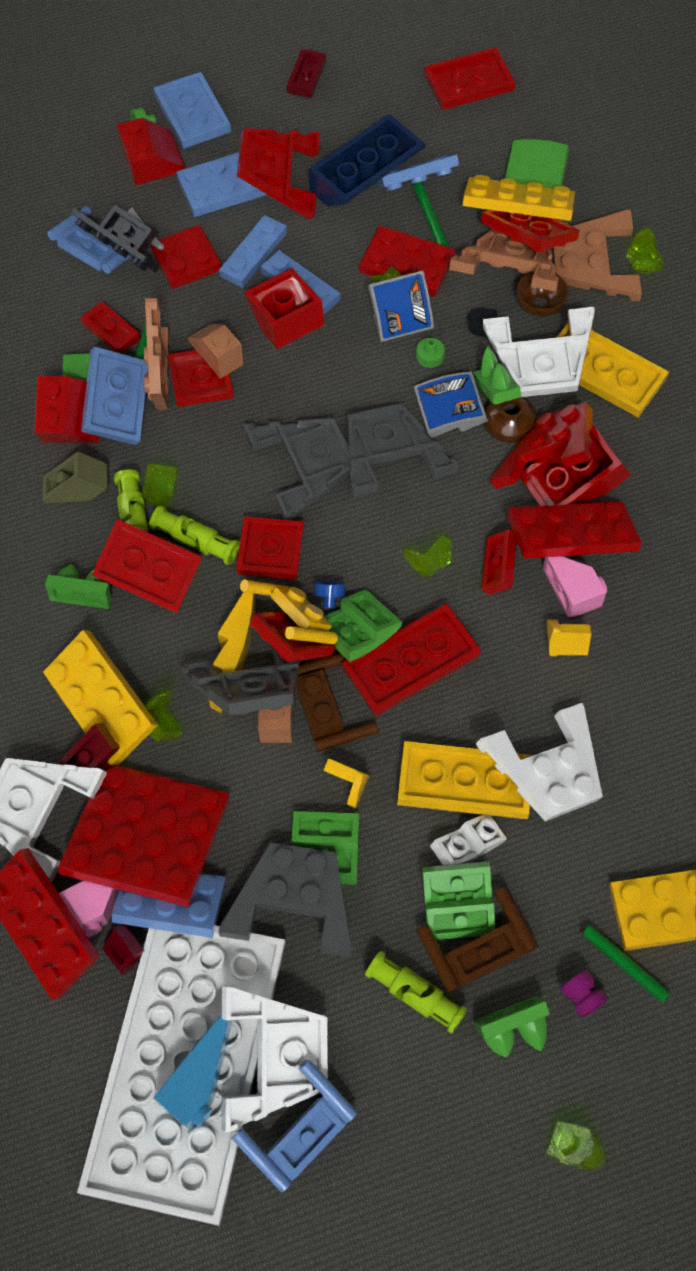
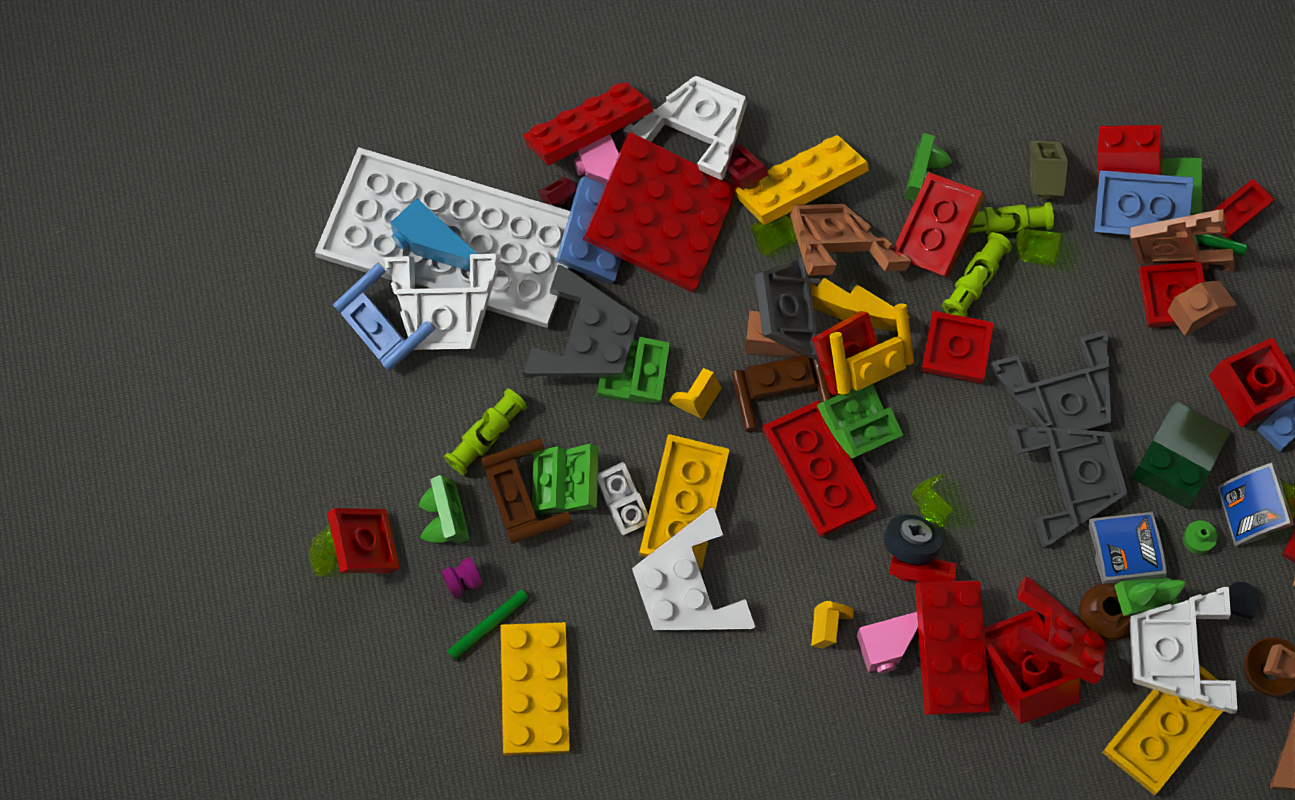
camera: 95 degrees right, 5 degrees up
(160, 658) = (837, 228): none -> nougat wing
(329, 591) = (902, 398): blue tile -> none
(357, 365) = (1181, 454): none -> dark green slope
(473, 570) = (912, 539): none -> black wheel
(566, 1106) = (363, 540): none -> red plate

